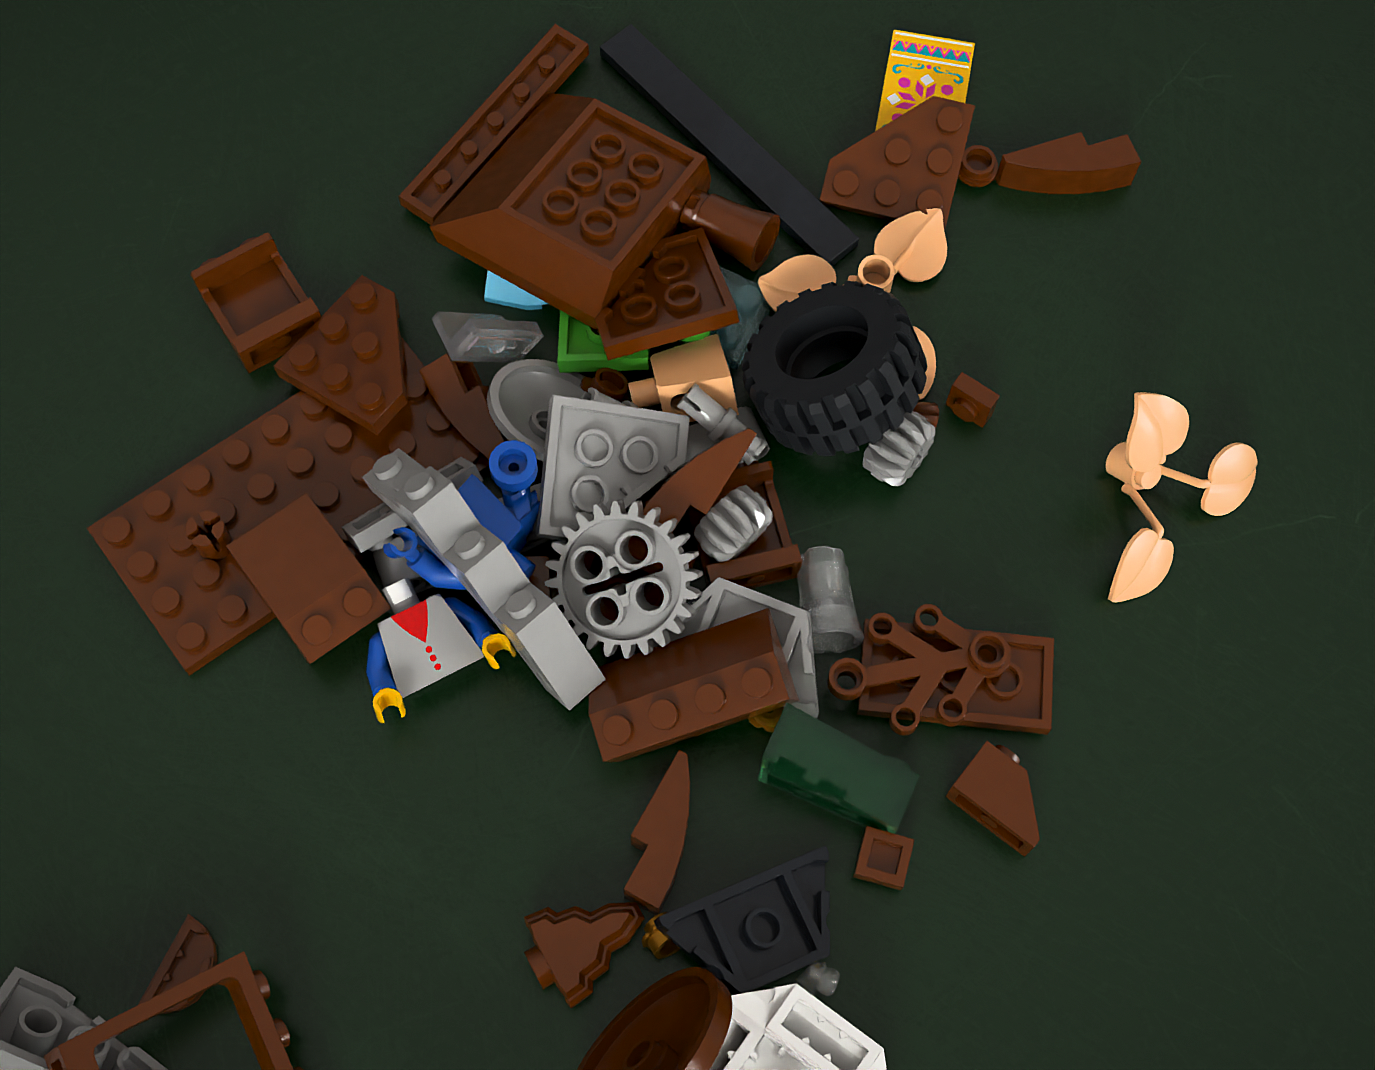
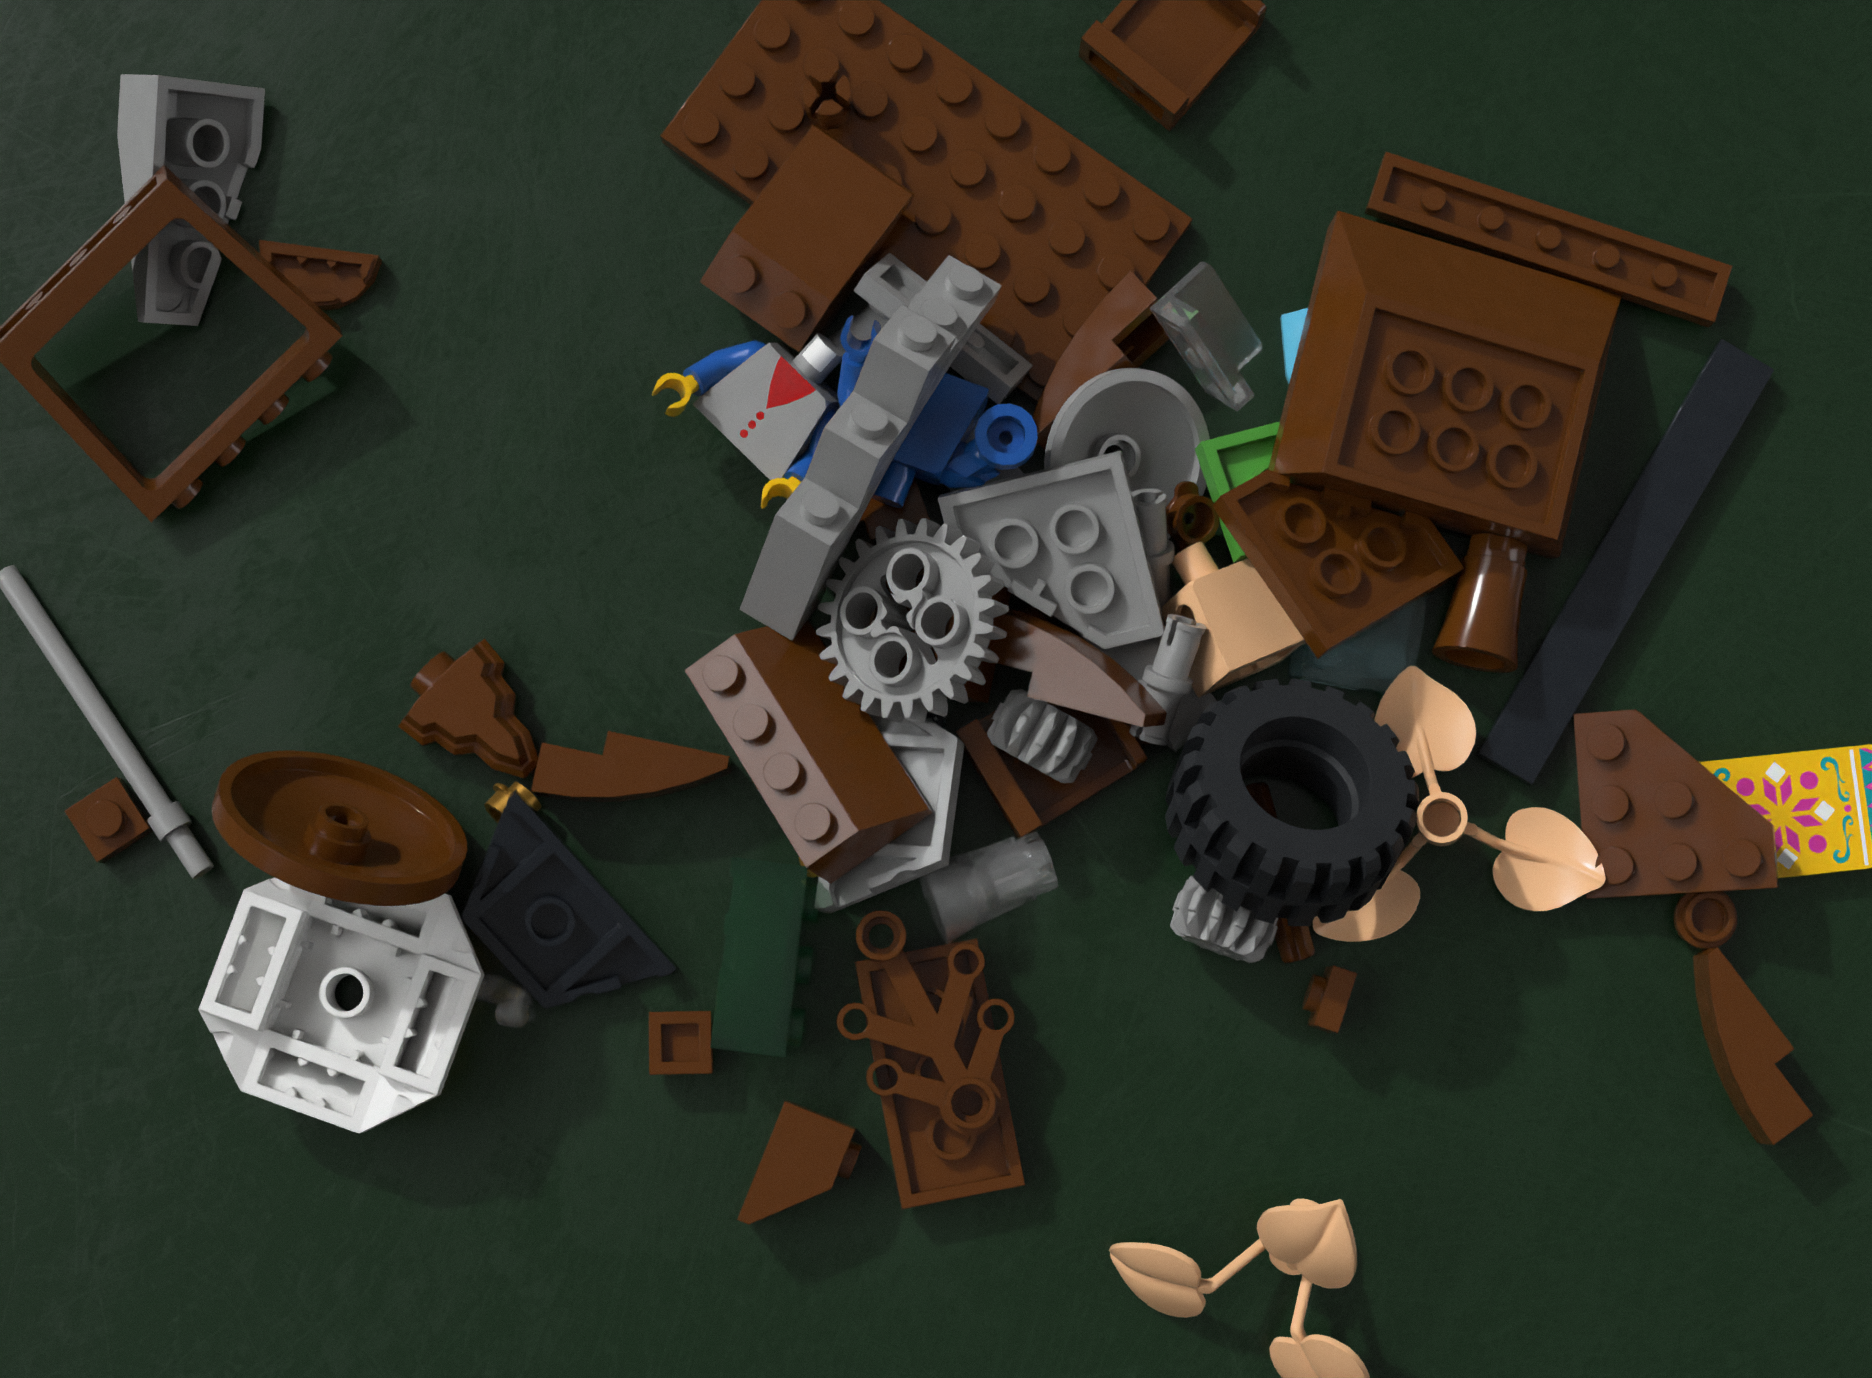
camera: 75 degrees right, 15 degrees up
(353, 357) = (1129, 182): reddish brown plate -> none

